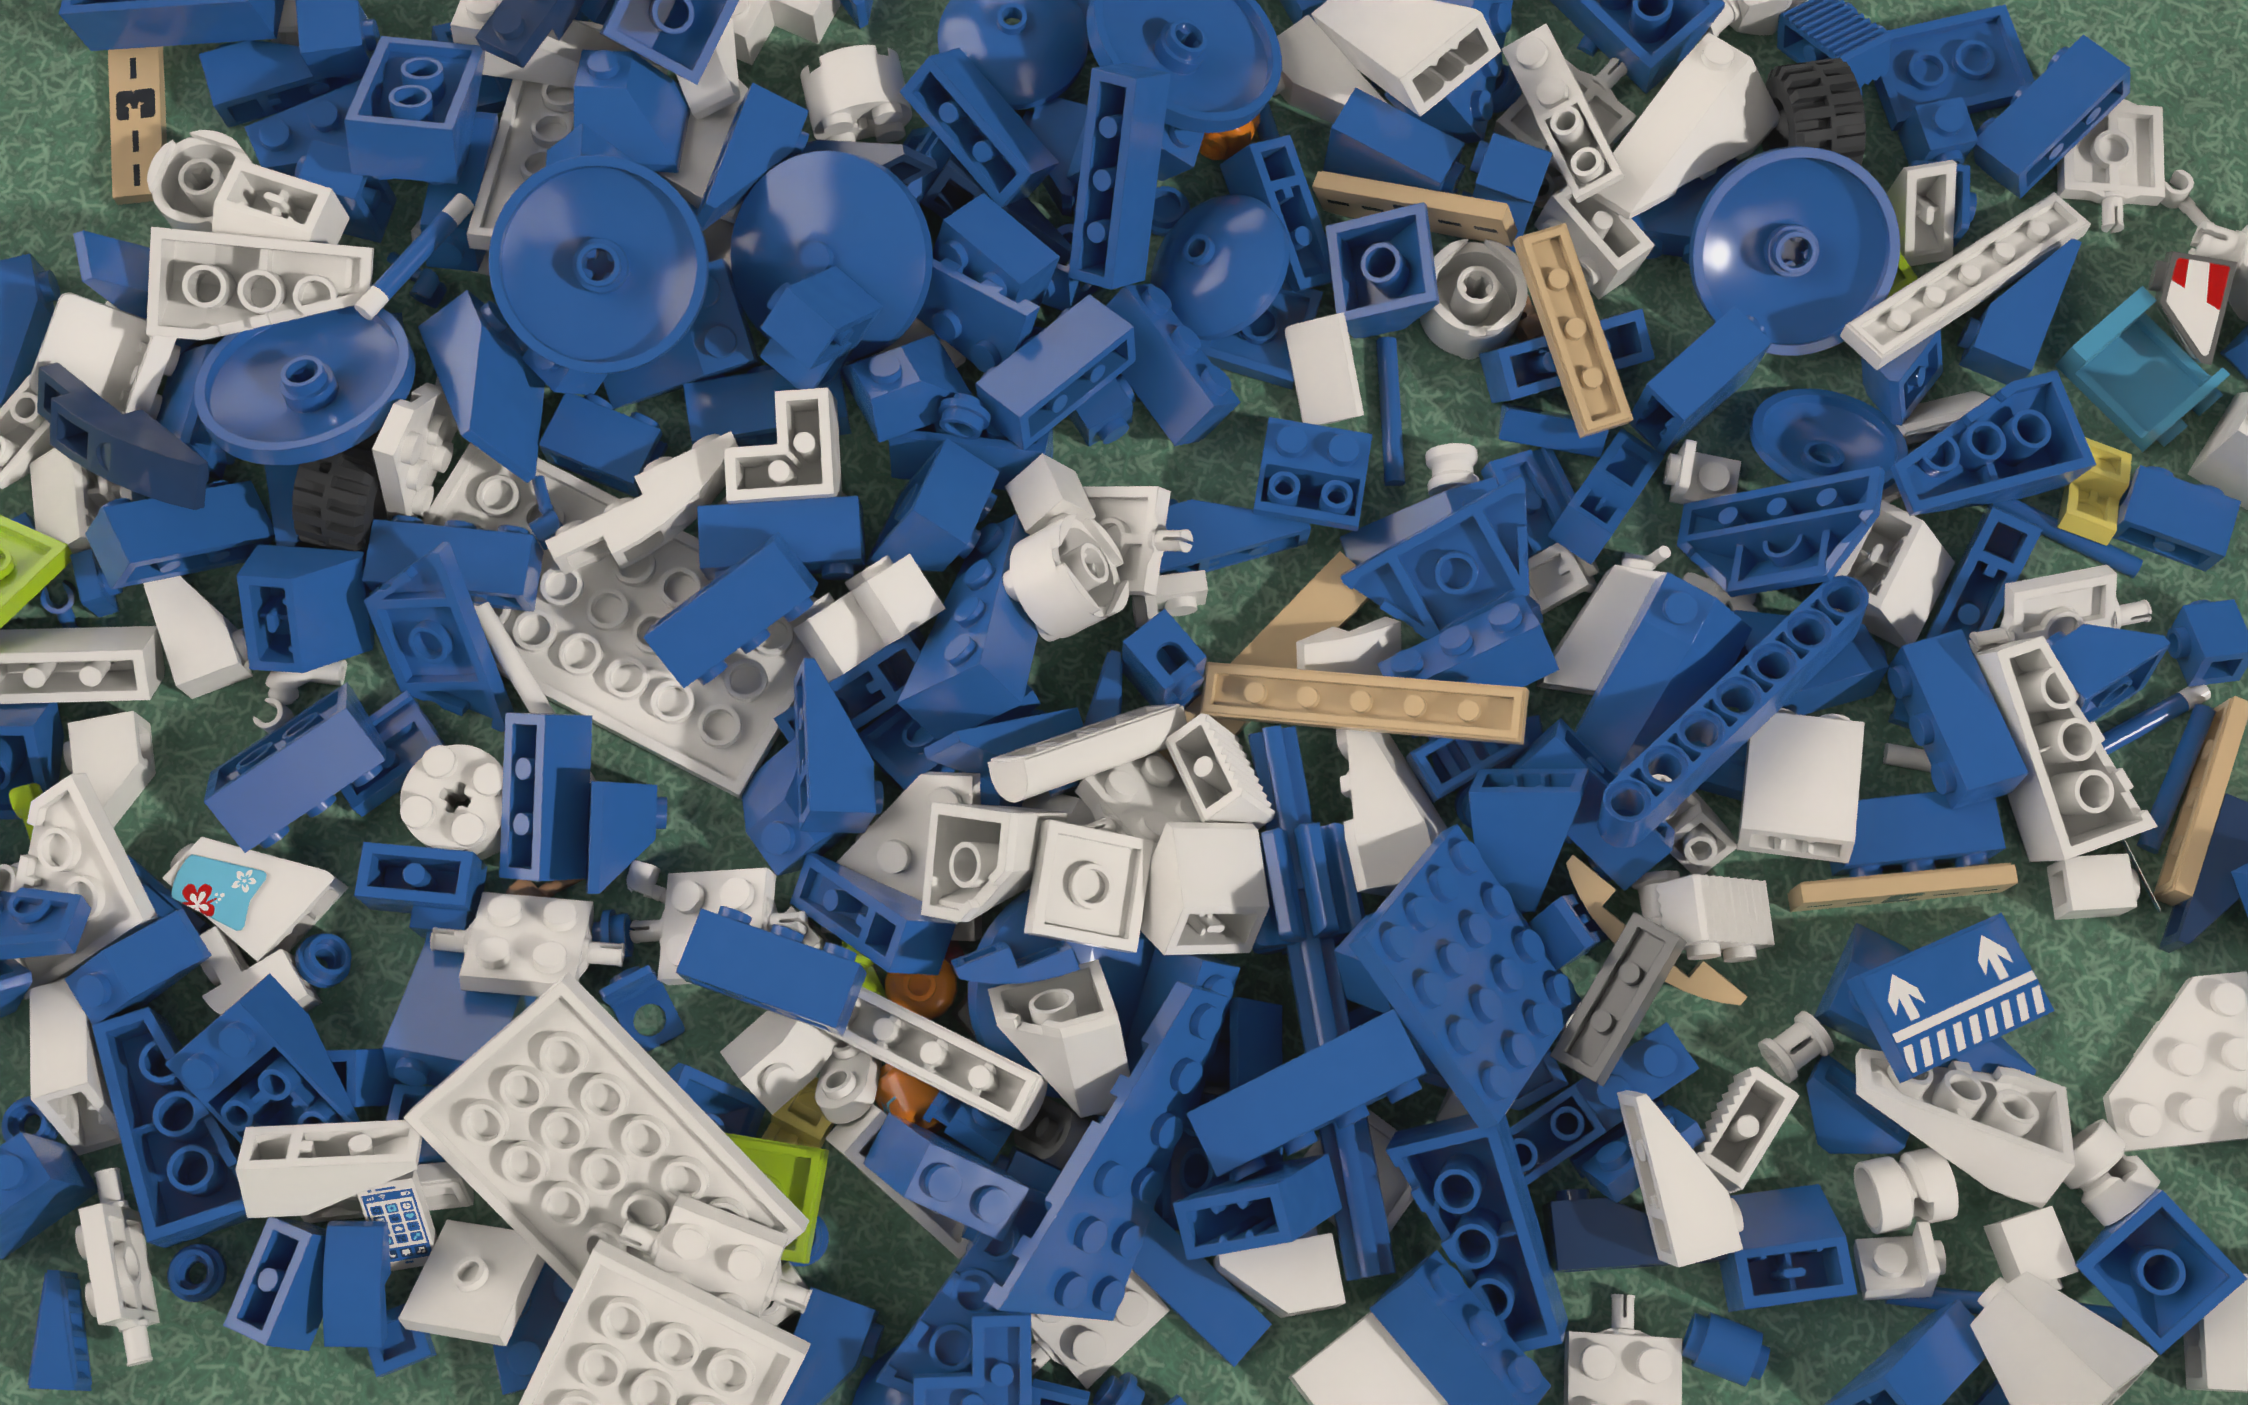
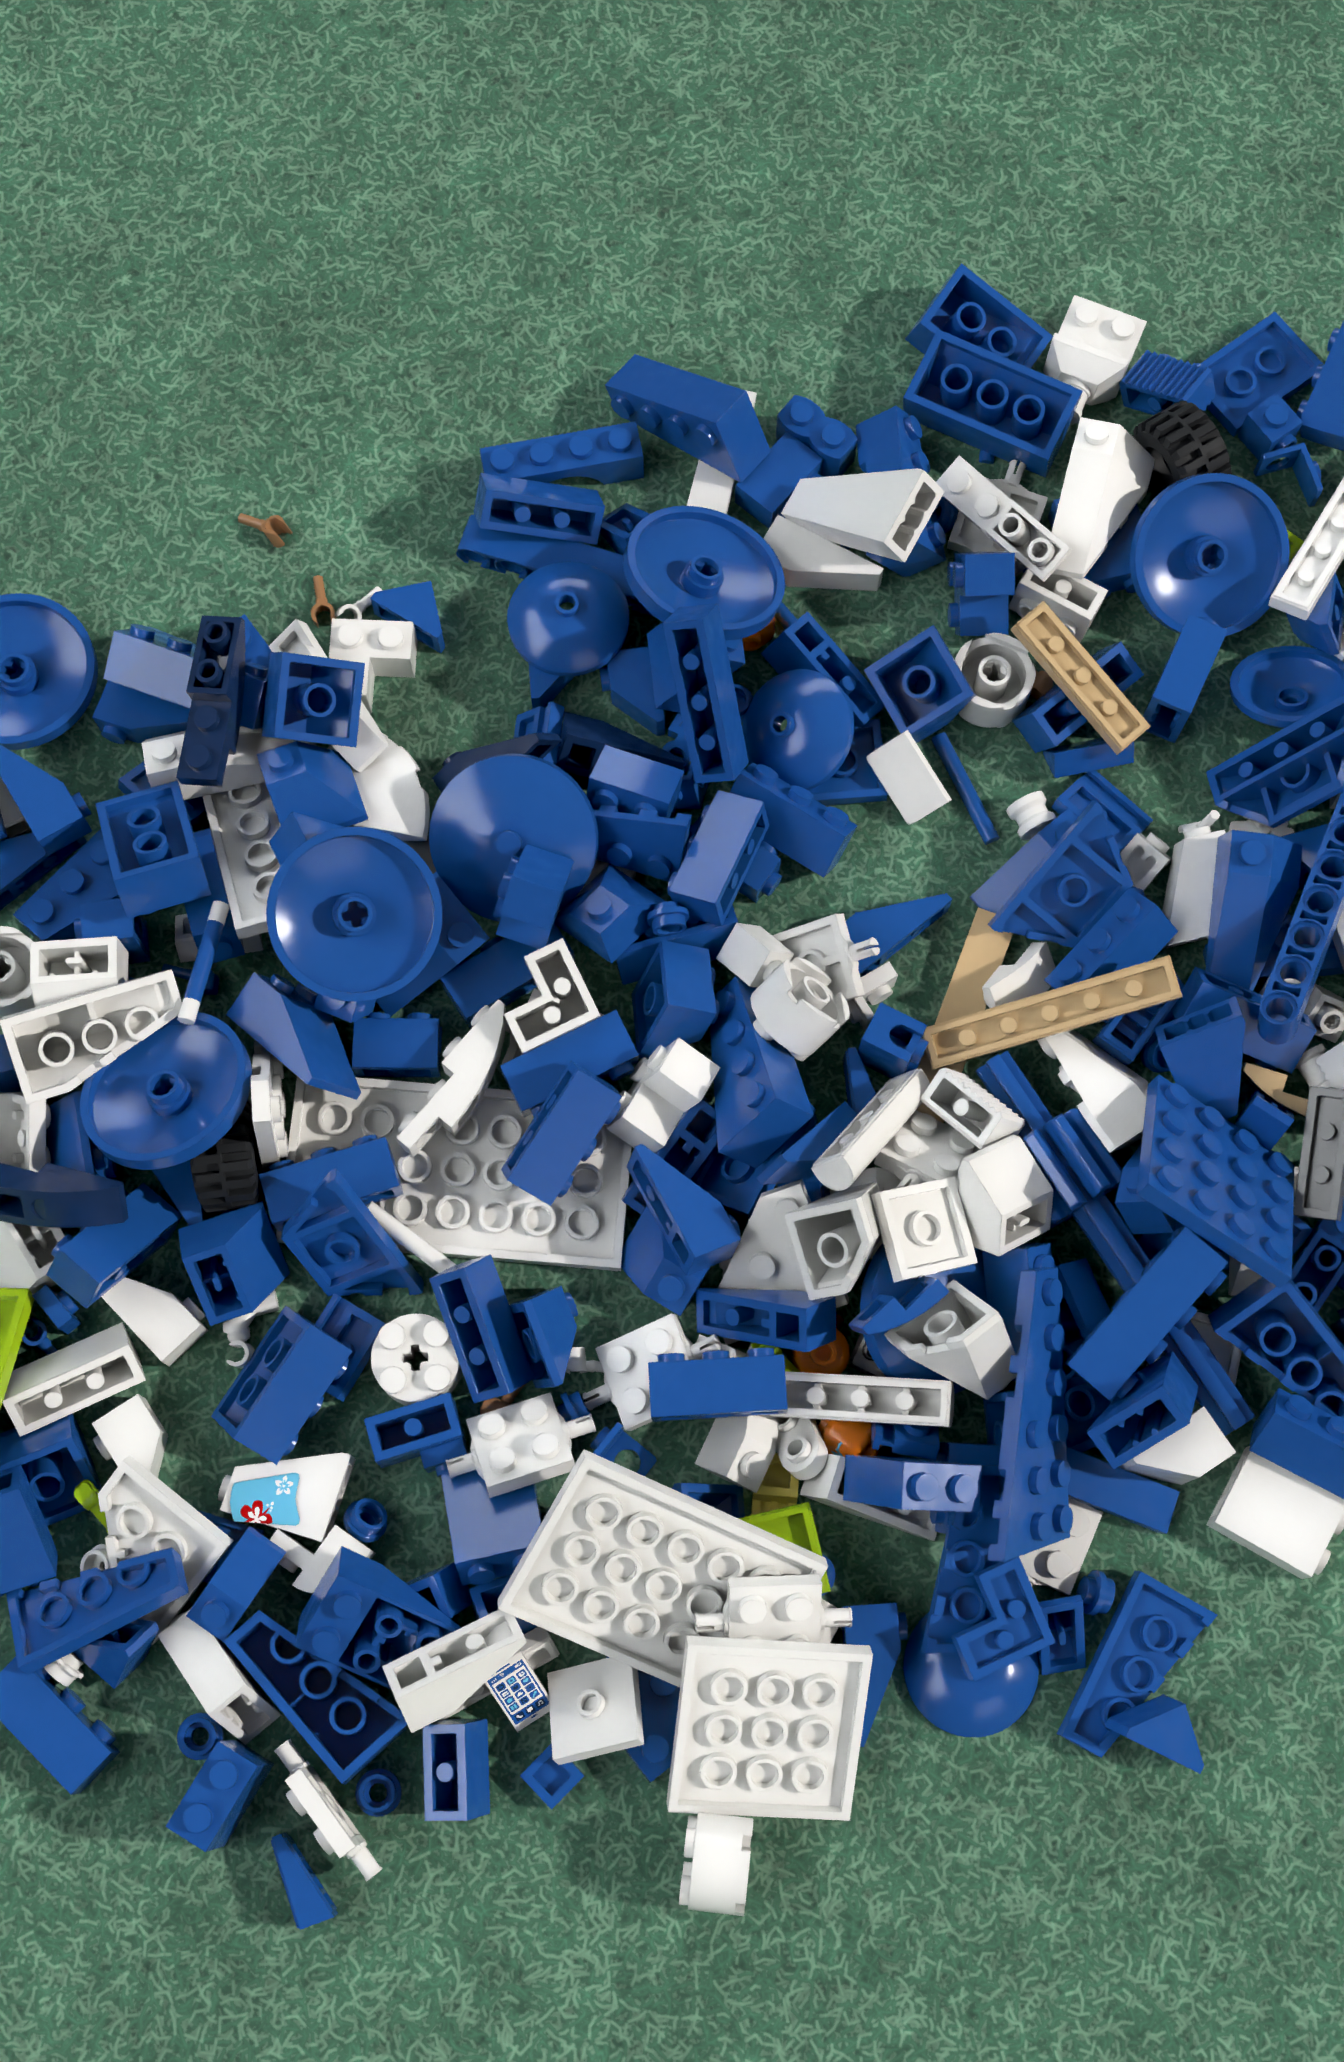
camera: 20 degrees left, 0 degrees up
(354, 1284) = (509, 1747): blue slope -> none
(549, 523) = (387, 1124): blue hand -> none
(759, 138) = (417, 773): blue slope -> none
(856, 95) = (469, 708): white brick -> none
(979, 126) = (578, 695): blue brick -> none
(1052, 1133) = (973, 1421): dark grey plate -> none
(1312, 474) = (934, 859): blue slope -> none
(1392, 147) = (890, 598): blue brick -> none
(1447, 212) = (951, 625): tan tile -> none
(1605, 496) = (1151, 790): blue slope -> none
(1699, 475) = (1209, 747): white bracket -> none
(1925, 211) = (1286, 484): white slope -> none

